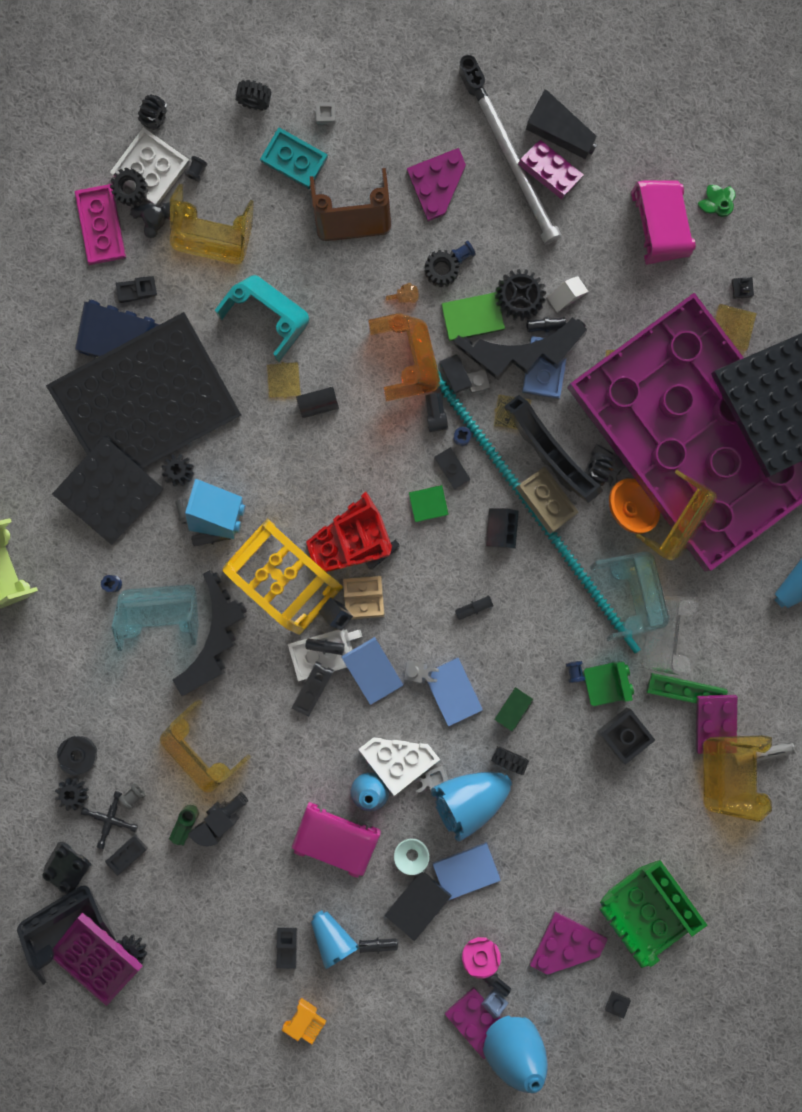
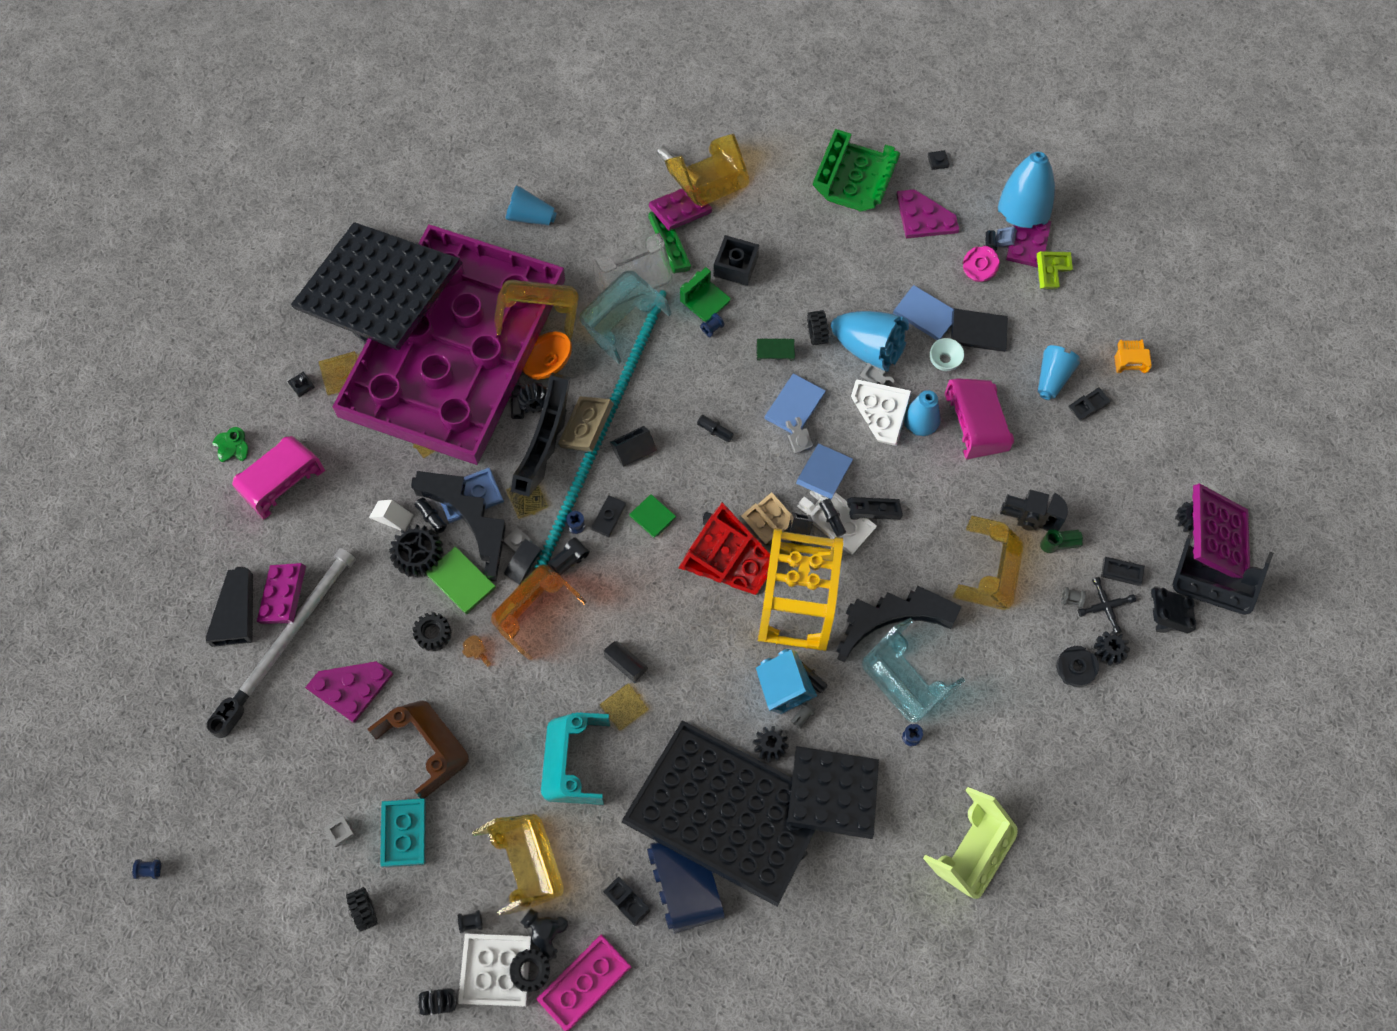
camera: 125 degrees left, 20 degrees down
(378, 945) = (1031, 340): black axle -> none
(439, 1021) = (1049, 265): none -> lime plate
(463, 252) = (404, 621): dark blue bush -> none

